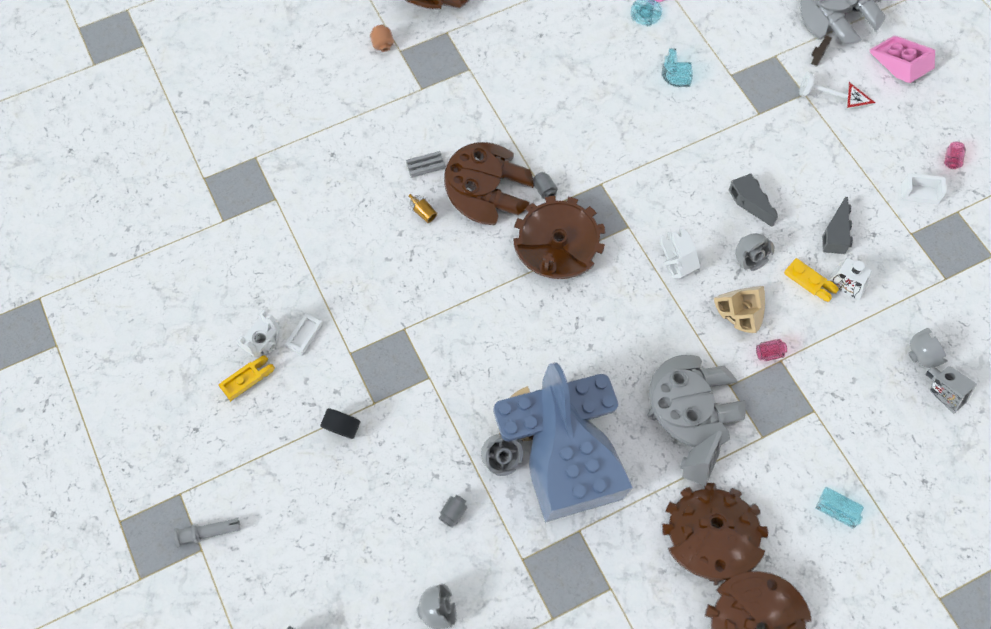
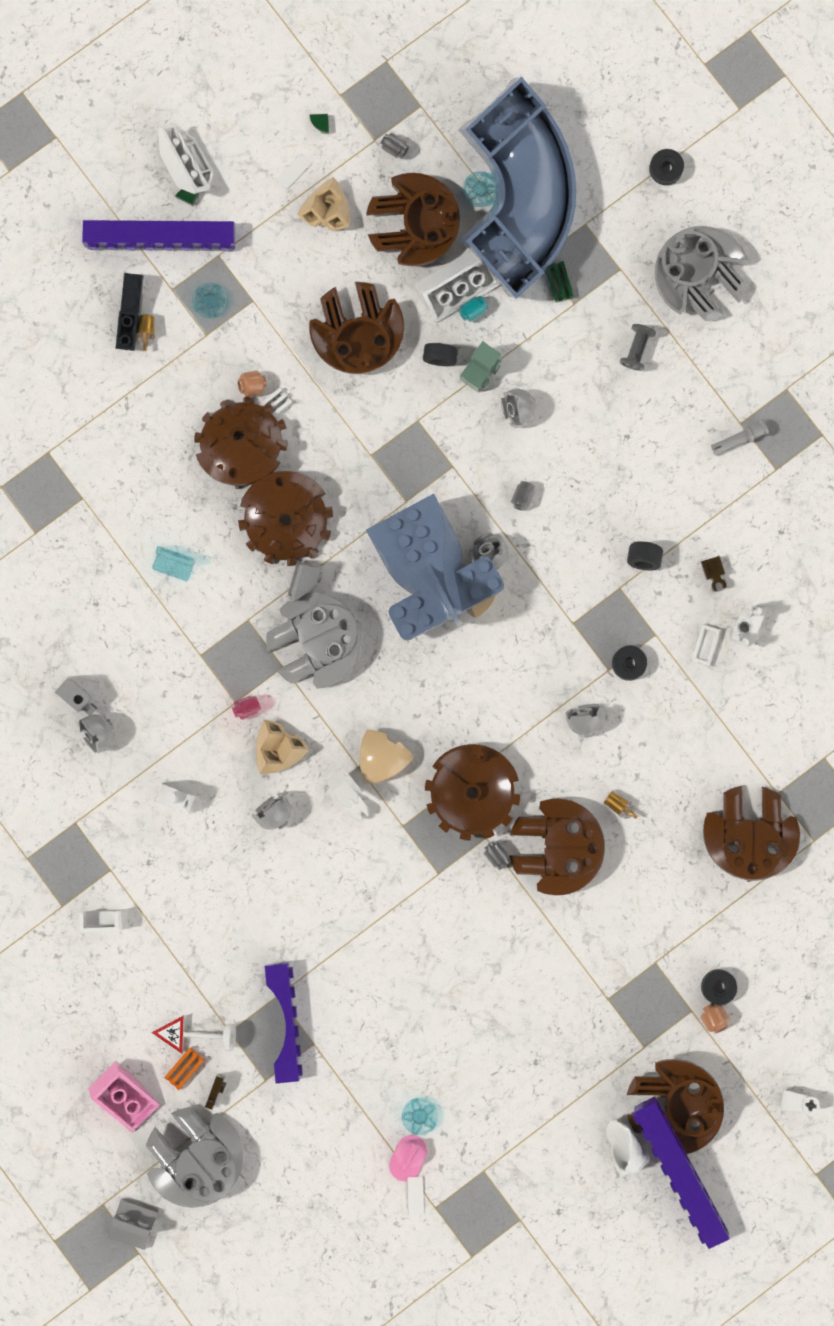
camera: 170 degrees right, 20 degrees up
(245, 378) = (749, 587): yellow hinge -> none
(275, 401) = (714, 570): none -> dark brown plate
(310, 159) = (751, 837): none -> reddish brown piece
(372, 69) = (726, 995): none -> black tyre
(379, 318) = (629, 652): none -> black tyre
(424, 161) = (643, 855): light grey tile -> none
(437, 283) = (586, 720): none -> light grey cylinder
(641, 279) = (381, 758): none -> tan brick
(676, 73) = (375, 1028): clear light blue brick -> none
(750, 197) = (282, 881): dark grey slope -> none
(758, 116) = (278, 981): none -> dark purple arch
(810, 280) = (213, 796): yellow hinge -> none
(837, 234) = (188, 853): dark grey slope -> none
(860, 69) = (173, 1080): none -> orange tile
(955, 155) = (66, 971): clear pink brick -> none

